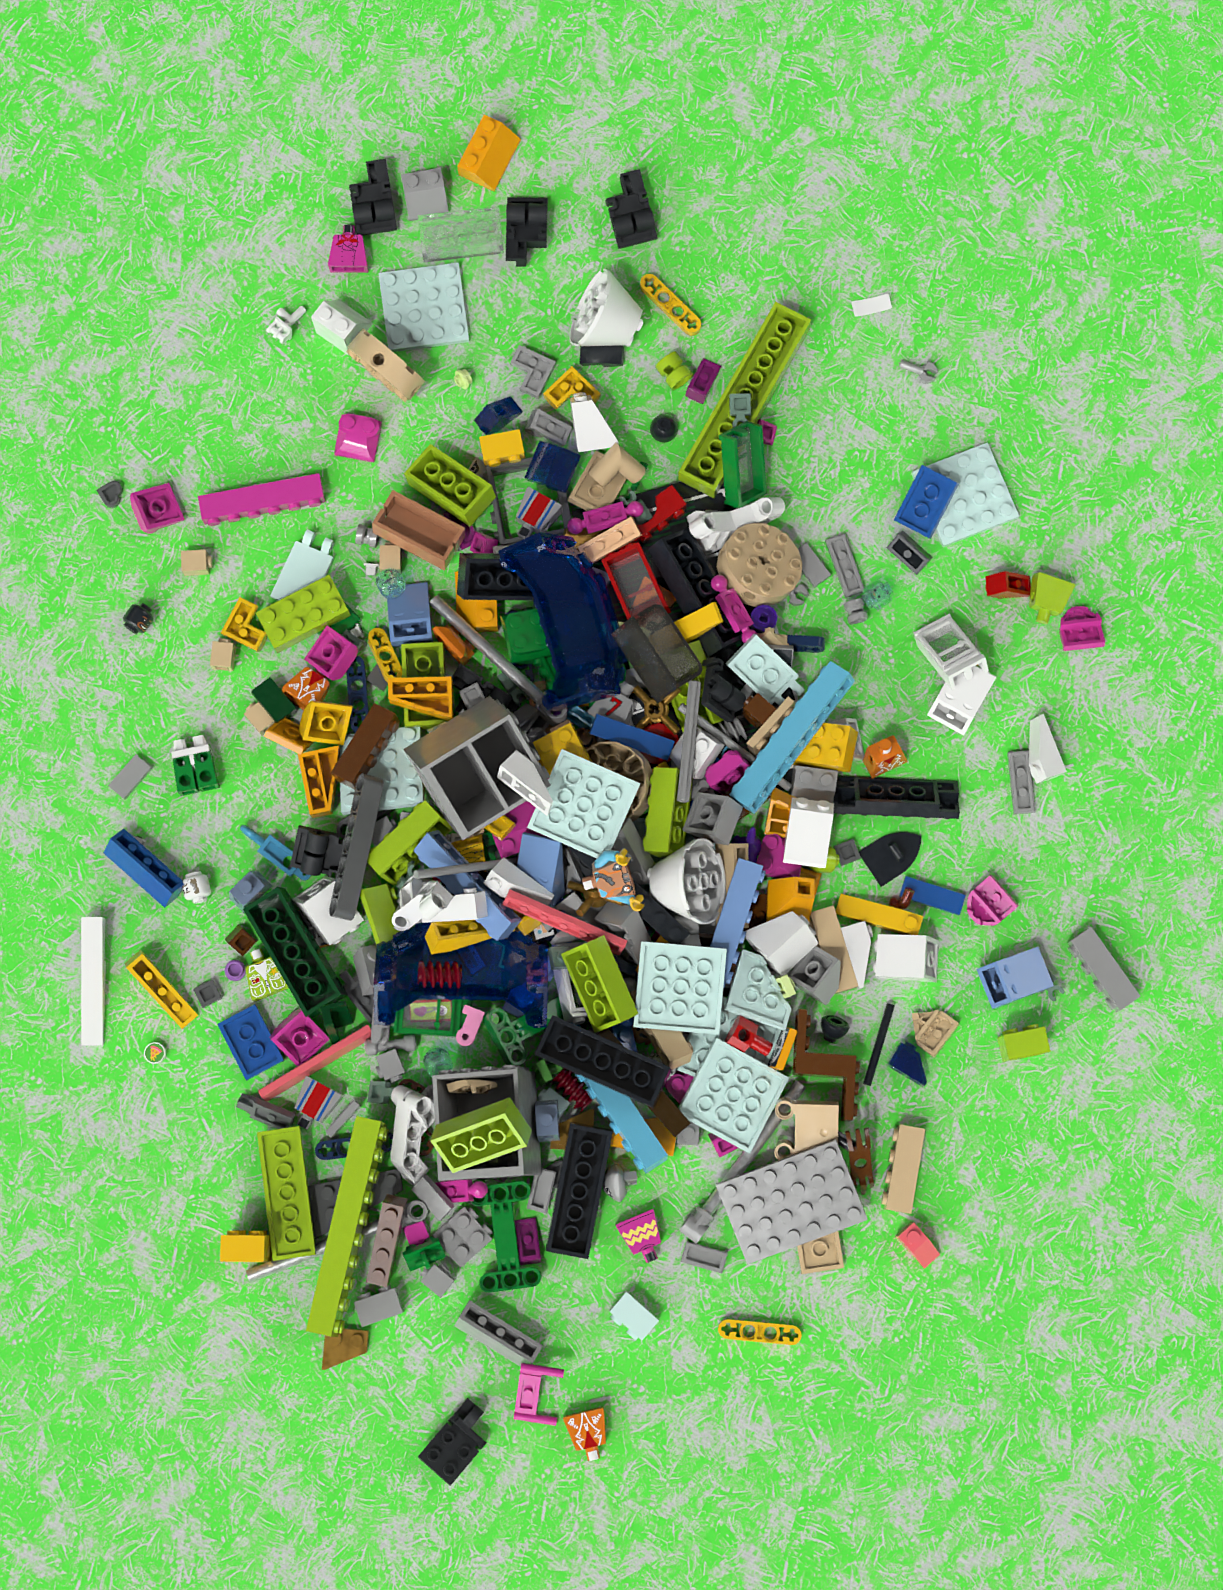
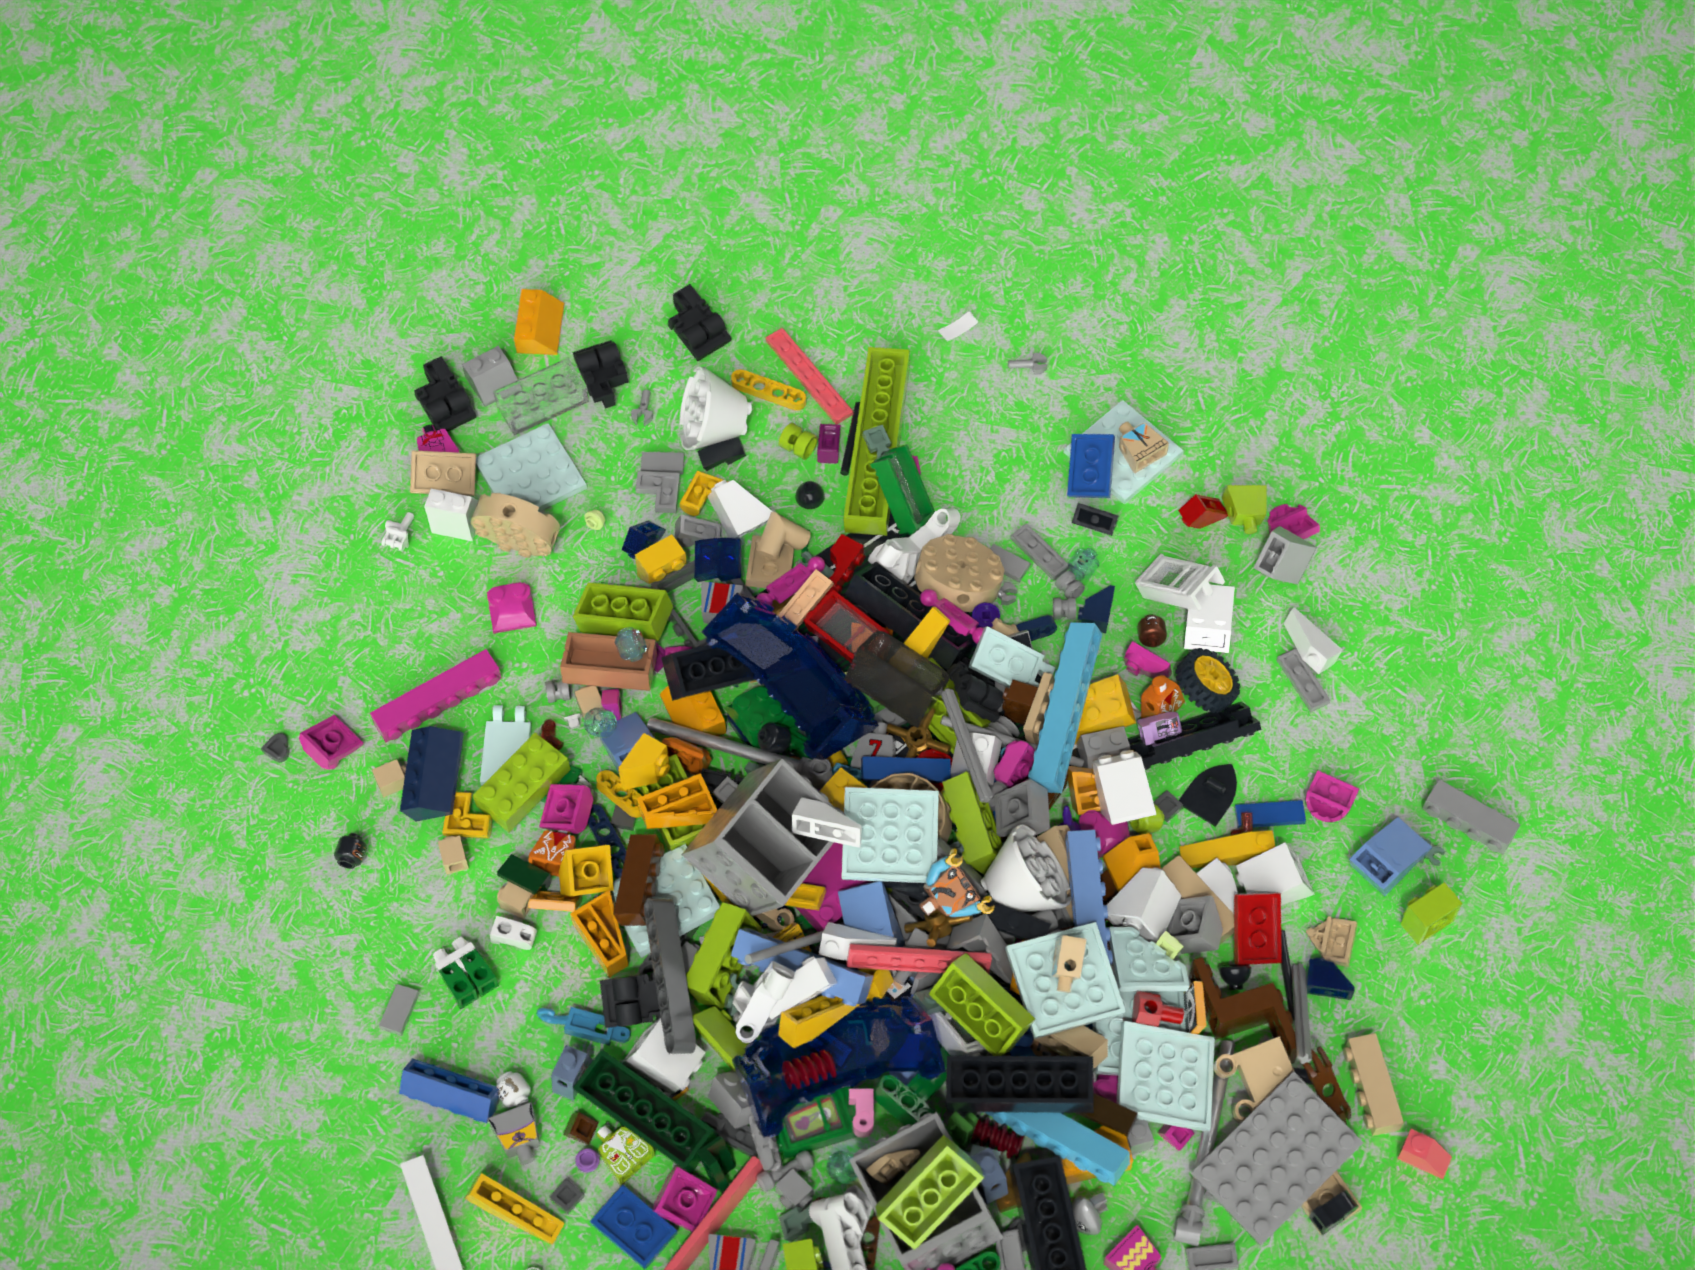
camera: 20 degrees left, 20 degrees down
(187, 925) = (517, 1132): none -> light grey torso
(230, 573) = (431, 773): none -> dark blue slope
(246, 747) = (512, 933): none -> white leg
(344, 280) = (443, 472): none -> tan tile
(344, 575) = (548, 734): none -> clear red arm
(408, 645) = (644, 763): none -> yellow slope
(409, 567) = (612, 701): none -> dark pink slope
(439, 527) = (630, 644): none -> clear light blue head
(530, 664) = (774, 738): none -> black head
(545, 343) = (662, 462): none -> light grey tile
(549, 280) = (636, 413): none -> light grey bar
(688, 970) = (1071, 951): none -> tan torso
(713, 304) = (809, 376): none -> coral tile
(713, 402) = (850, 442): none -> black bar
(817, 1263) = (1333, 1212): none -> black leg
(841, 631) = (1064, 608): none -> light grey wheel
(868, 1090) = (1301, 1013): none -> light grey axle
(869, 645) = (1098, 608): none -> dark blue slope
(869, 998) = (1257, 928): none -> red plate
(870, 781) = (1159, 727): none -> lavender leg
(885, 713) = (1145, 662): none -> dark pink slope
(908, 684) = (1150, 630): none -> copper head
(933, 754) = (1207, 680): none -> black wheel
(980, 499) = (1141, 445): none -> tan torso
(1058, 661) = (1285, 556): none -> light grey slope

